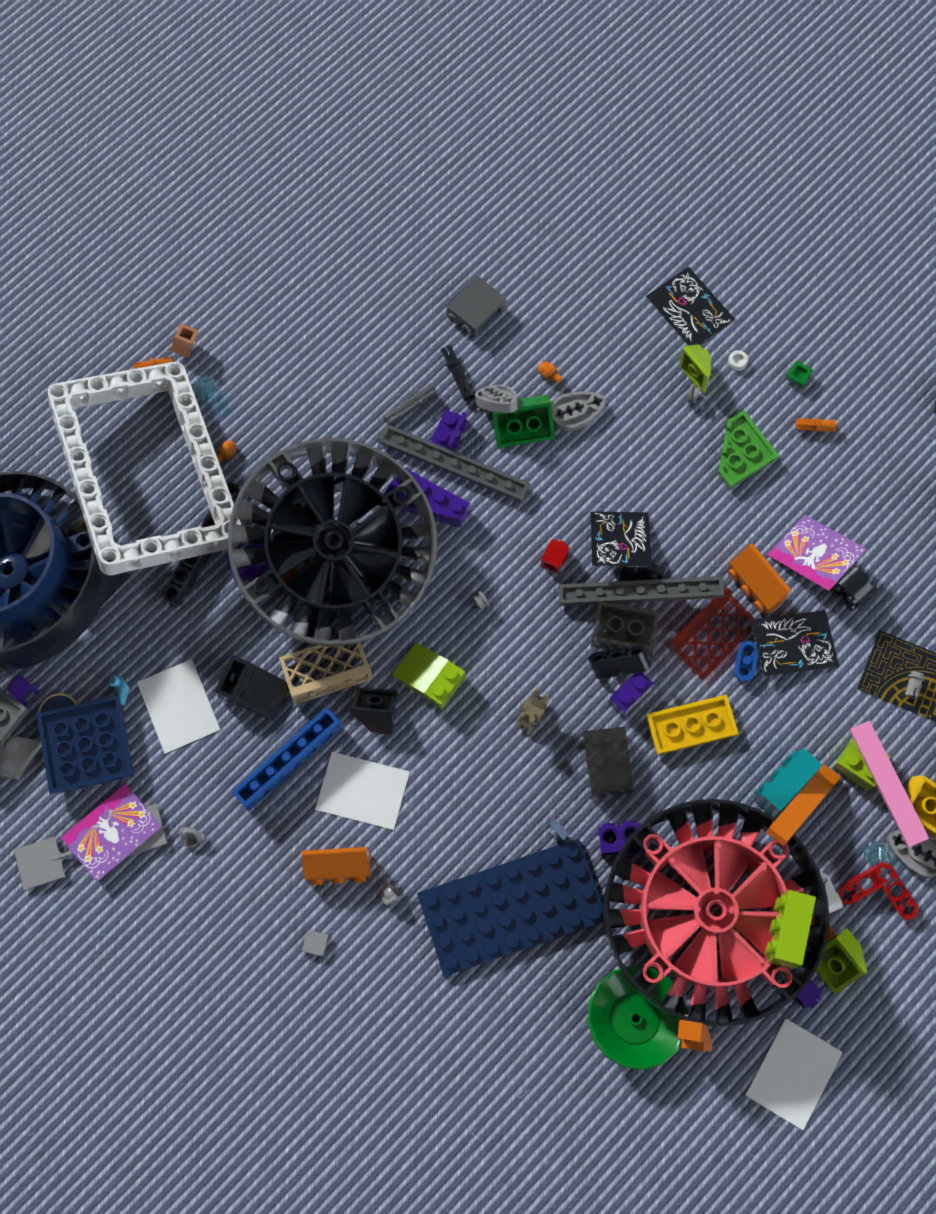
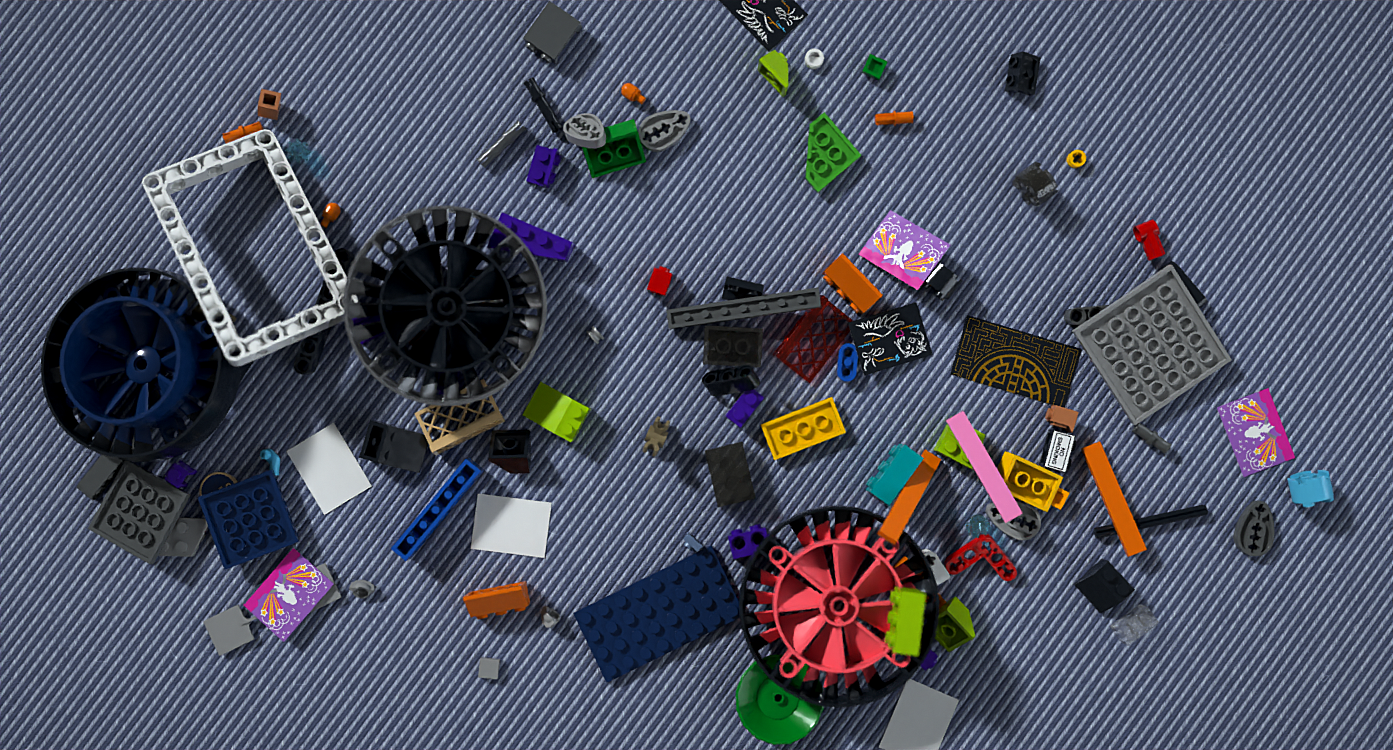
camera: 10 degrees left, 15 degrees up
(454, 463) = (552, 199): dark grey plate -> none
(620, 539) = (719, 259): black sticker -> none
(692, 394) = (773, 100): light grey bush -> none
(694, 1036) = (830, 715): orange slope -> none
(914, 684) = (1002, 365): light grey pin -> none

